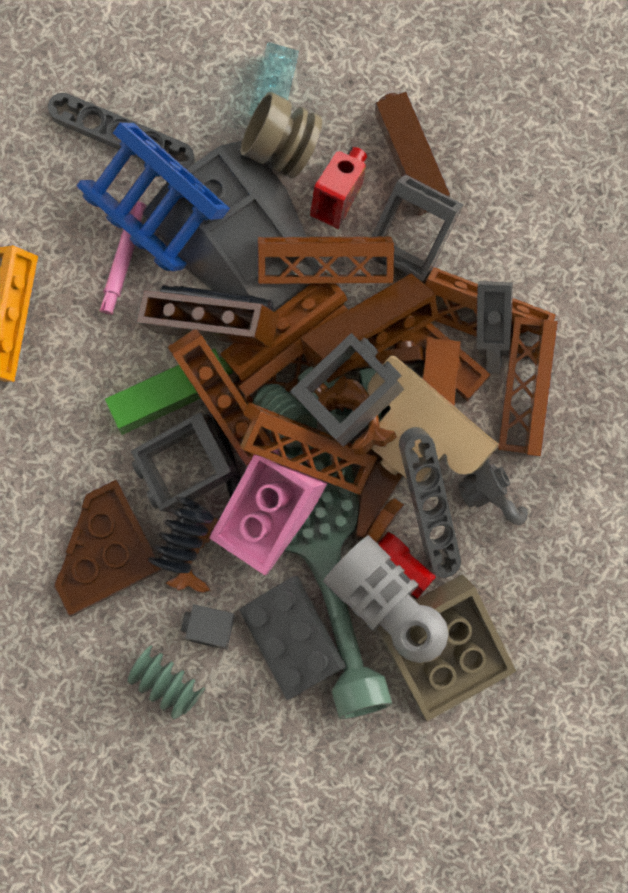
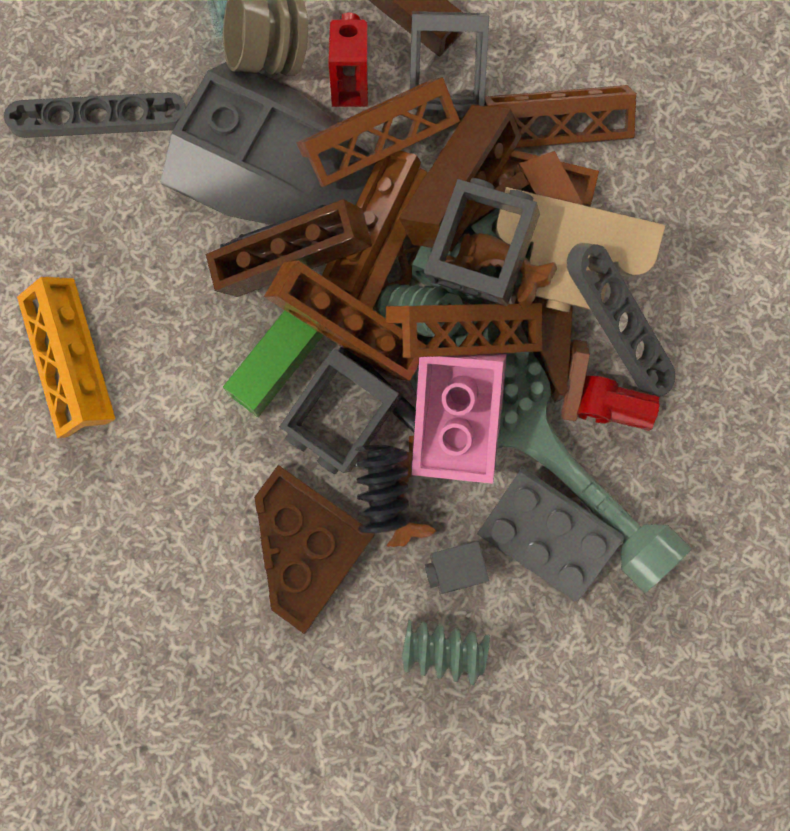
camera: 30 degrees left, 0 degrees up
(120, 265) = (164, 238): bright pink piece -> none
(180, 185) = (188, 127): blue fence -> none
(382, 597) = (634, 443): light grey cylinder -> none
(468, 662) = (705, 462): dark tan slope -> none
(490, 485) = (662, 281): dark grey piece -> none
(494, 322) = (579, 114): dark grey hinge -> none
(540, 389) = (656, 151): dark orange fence -> none

